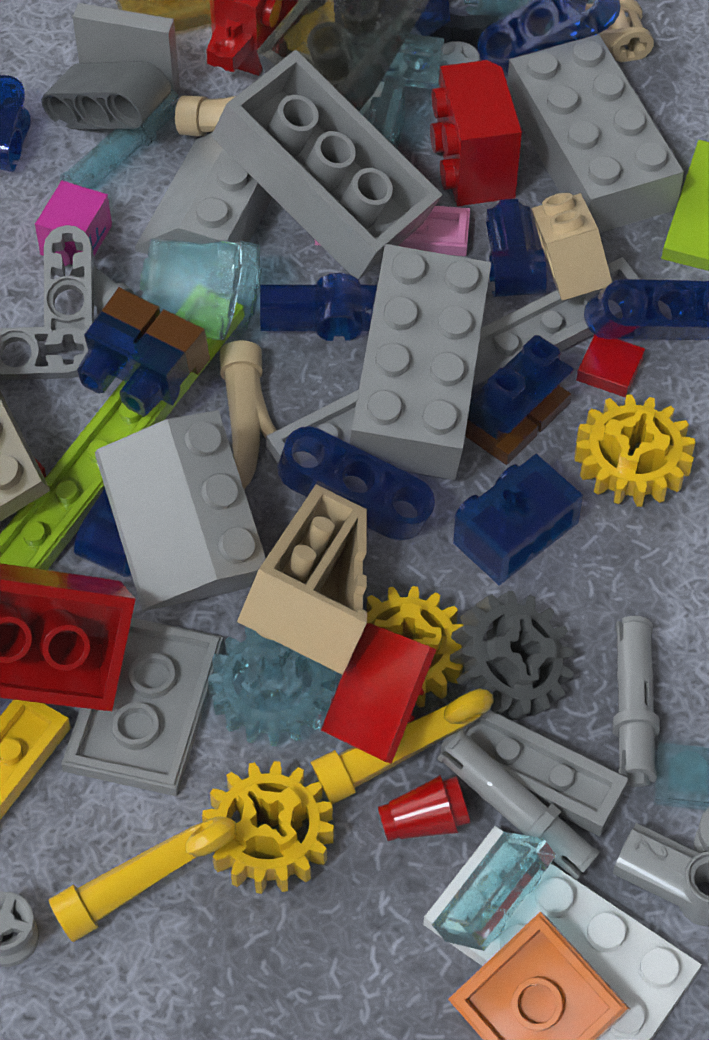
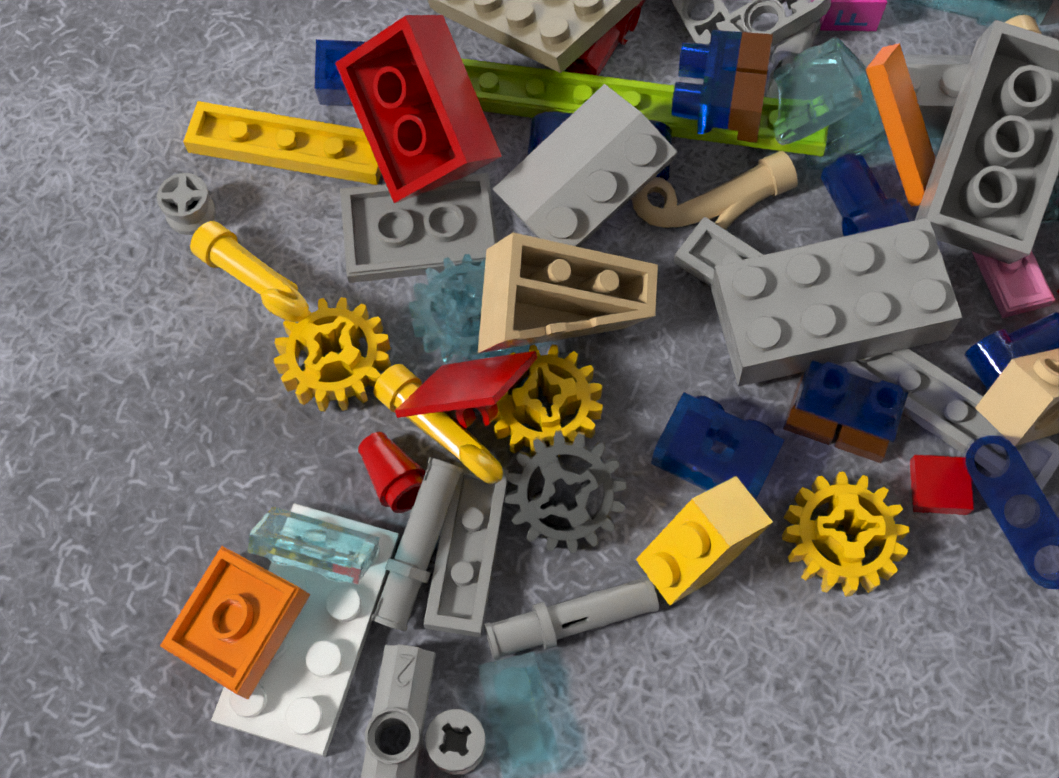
camera: 70 degrees right, 10 degrees up
(259, 232) = (902, 120): none -> orange tile
(384, 481) = (677, 276): clear blue beam -> none
(614, 550) = (703, 539): none -> yellow brick

